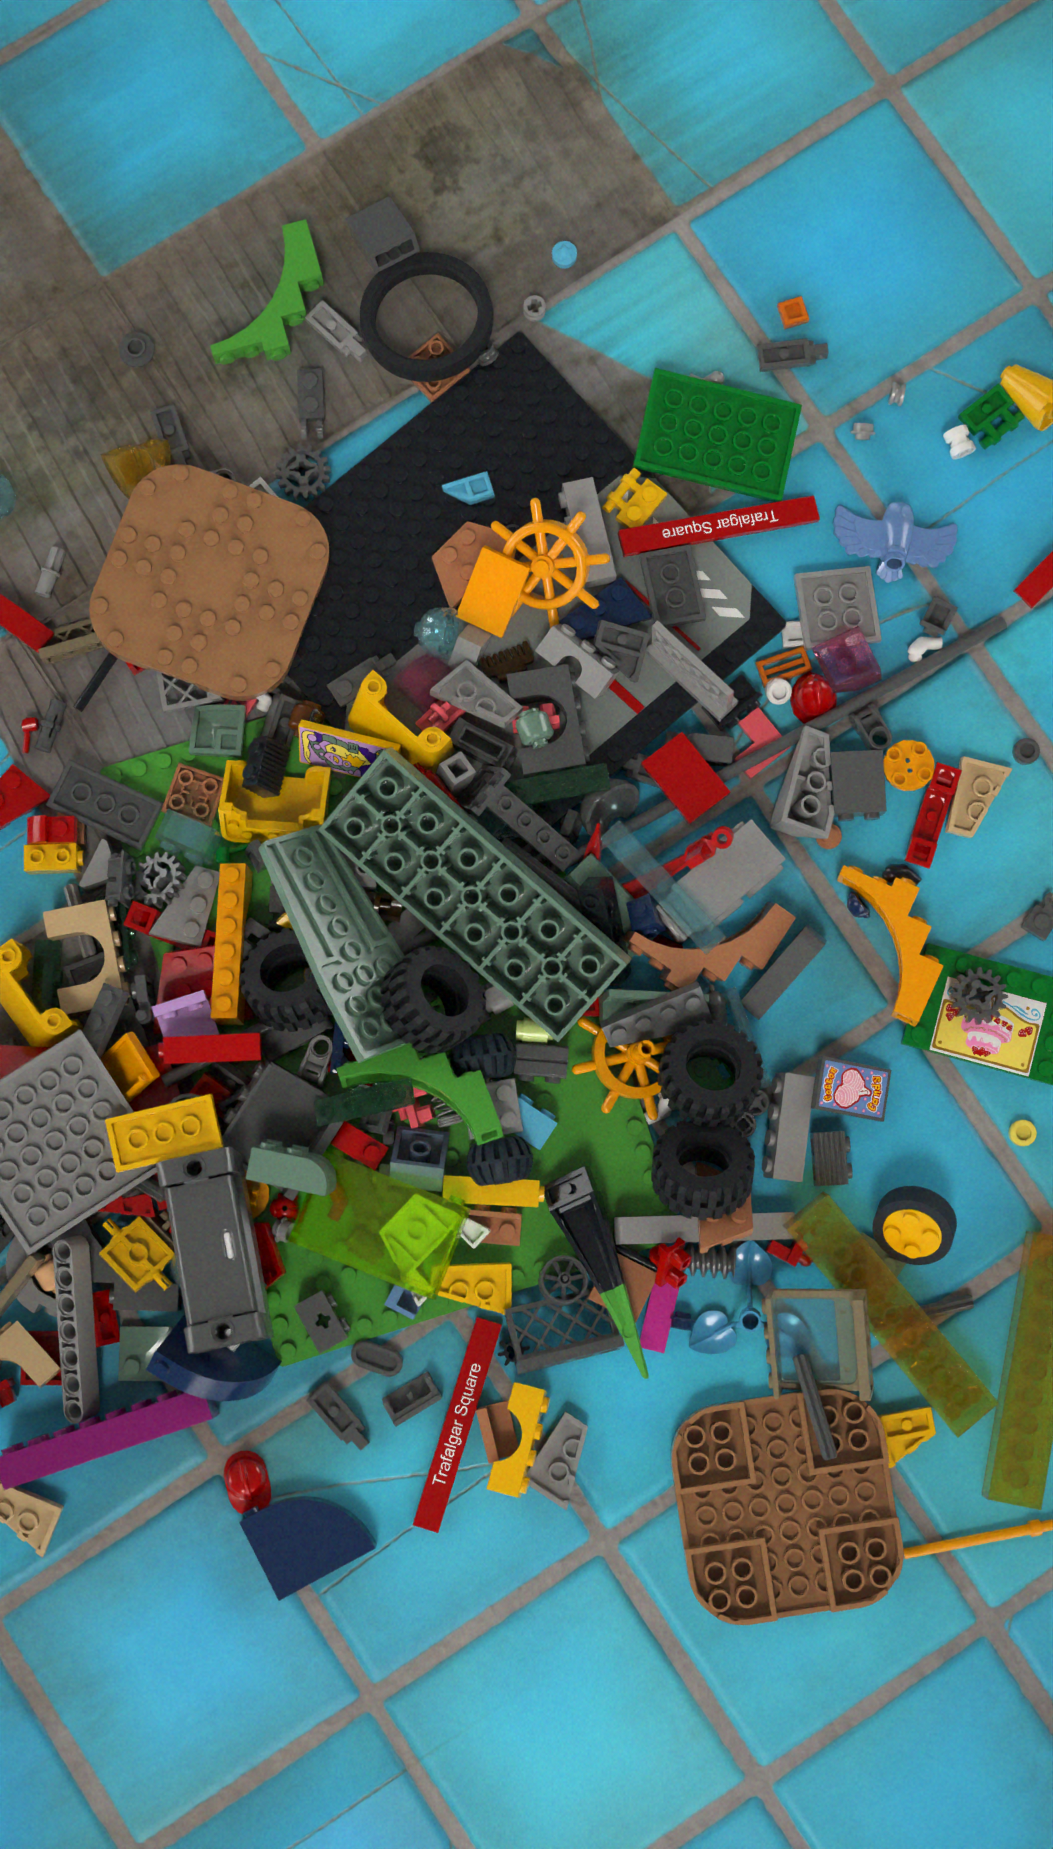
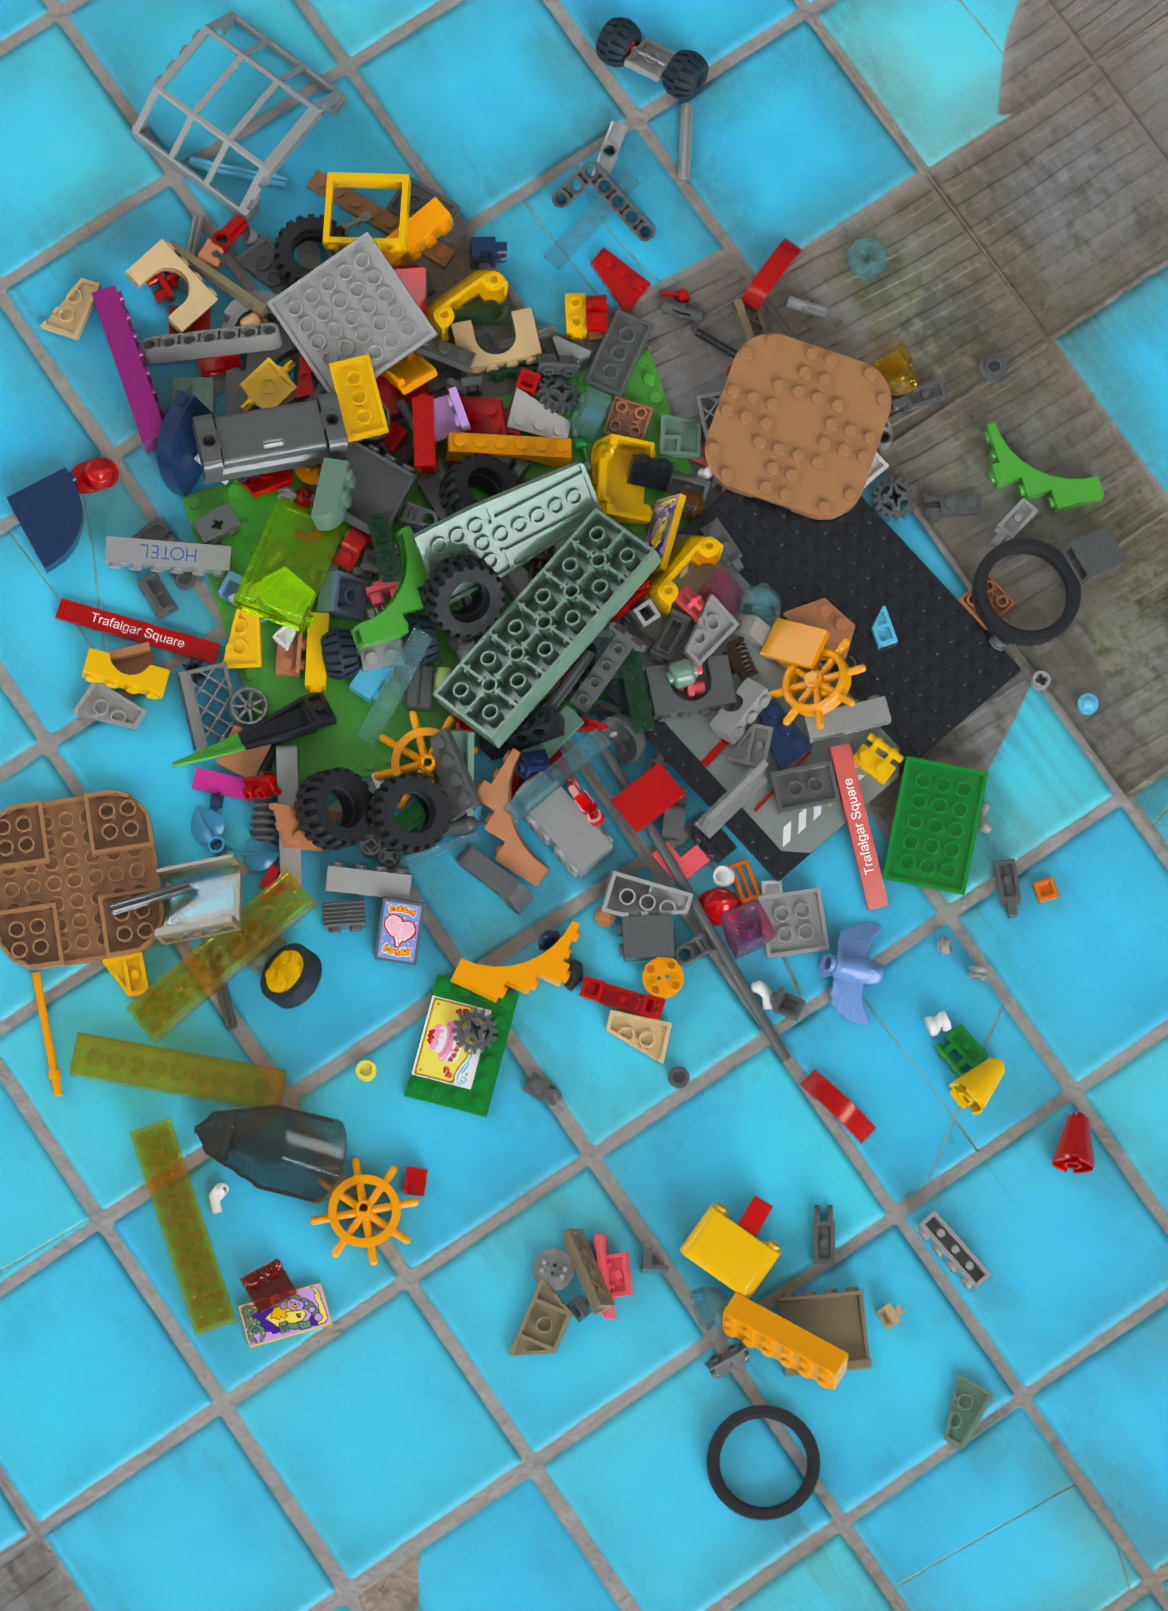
camera: 85 degrees right, 5 degrees down
(362, 1386) = (167, 555): none -> light grey brick
(543, 1090) = (395, 686): none -> clear light blue tile

